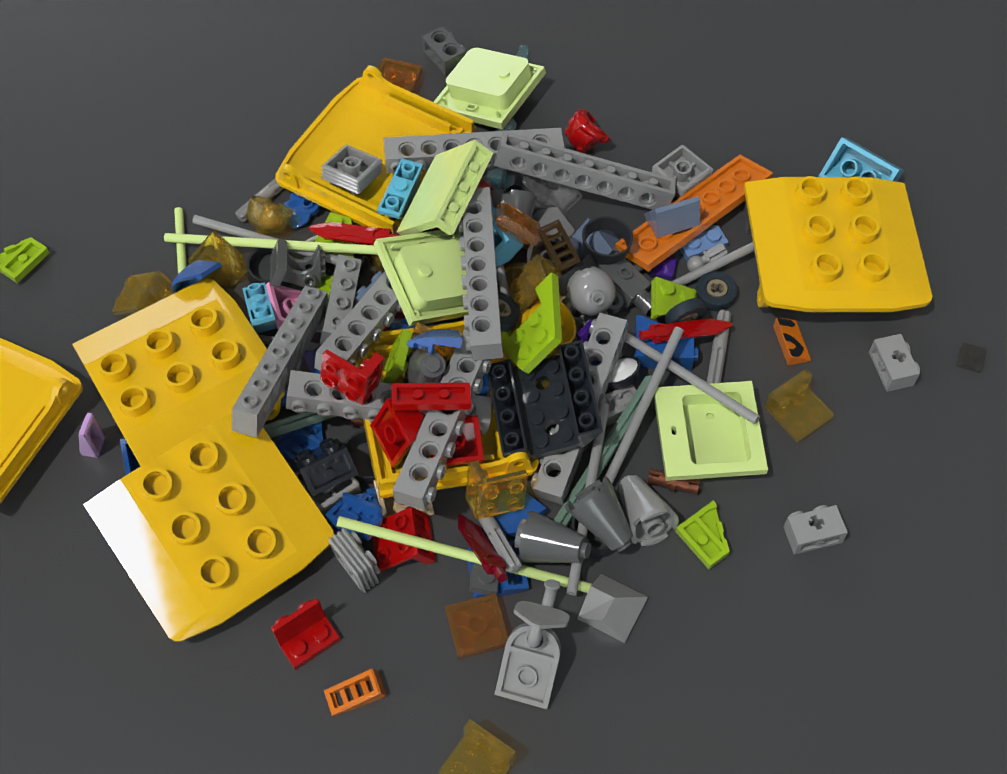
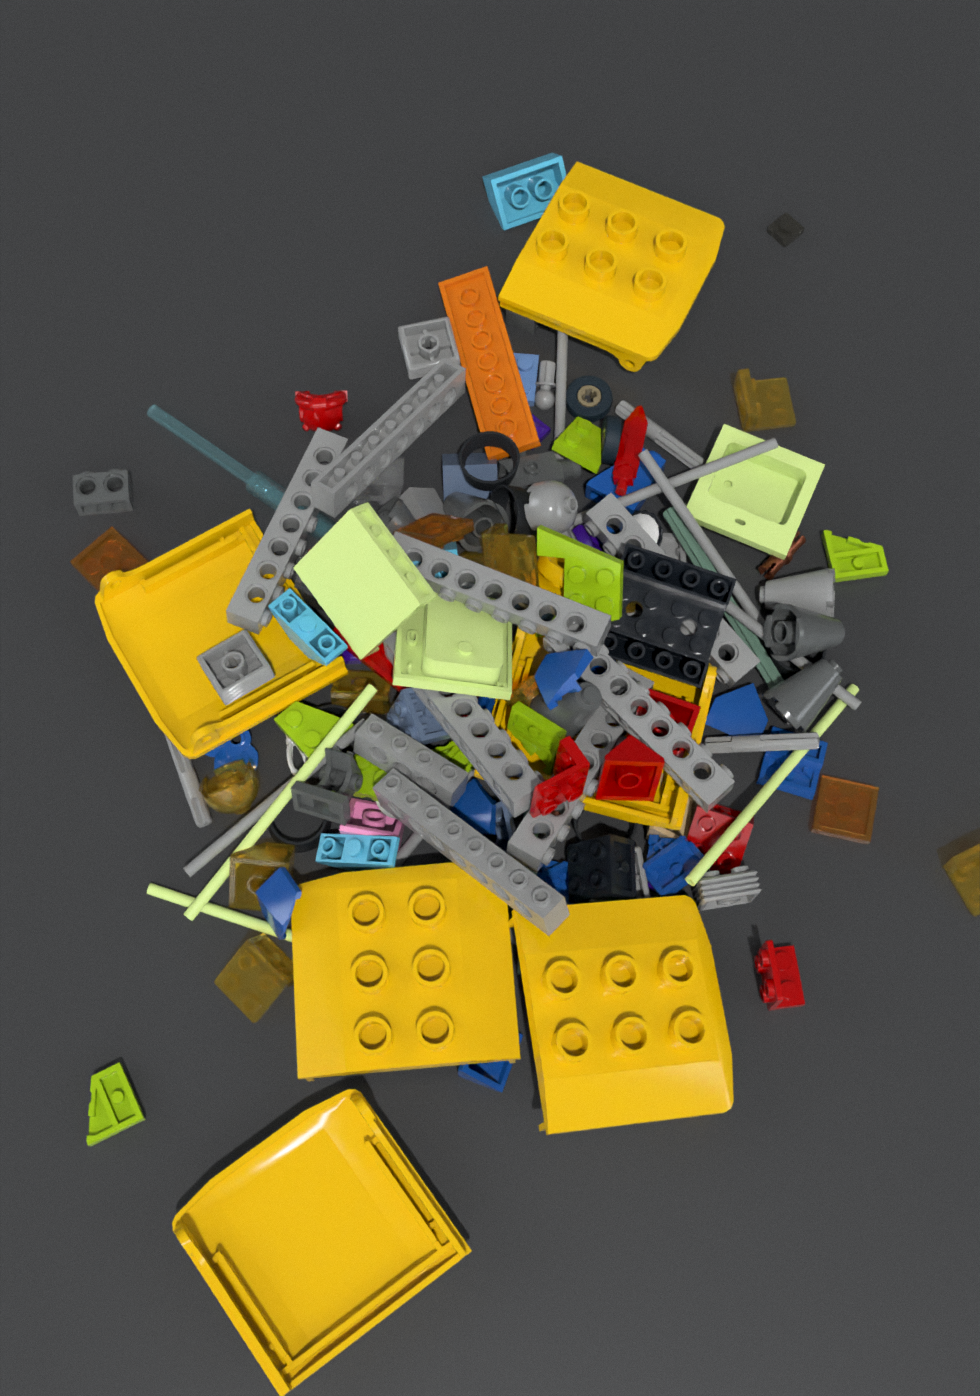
camera: 65 degrees left, 10 degrees up
(91, 437) = (425, 1109): lavender slope -> none
(350, 232) = (328, 705): red piece -> none
(368, 697) = (869, 947): orange slope -> none
(431, 396) = (627, 715): red plate -> none
(481, 582) = (803, 779): dark grey plate -> none
(484, 551) = (800, 759): dark red piece -> none
(489, 86) = (194, 474): yellowish green piece -> none
(494, 494) = (727, 730): clear yellow bracket -> none
(527, 664) = (910, 766): light grey plate -> none
(574, 258) = (508, 507): dark brown slope -> none
(612, 607) = (882, 679): light grey slope -> none
(674, 217) = (491, 383): sand blue slope -> none
(791, 341) = (684, 367): orange slope -> none
(815, 529) = (895, 462): light grey brick -> none
(894, 362) = (759, 294): light grey brick -> none

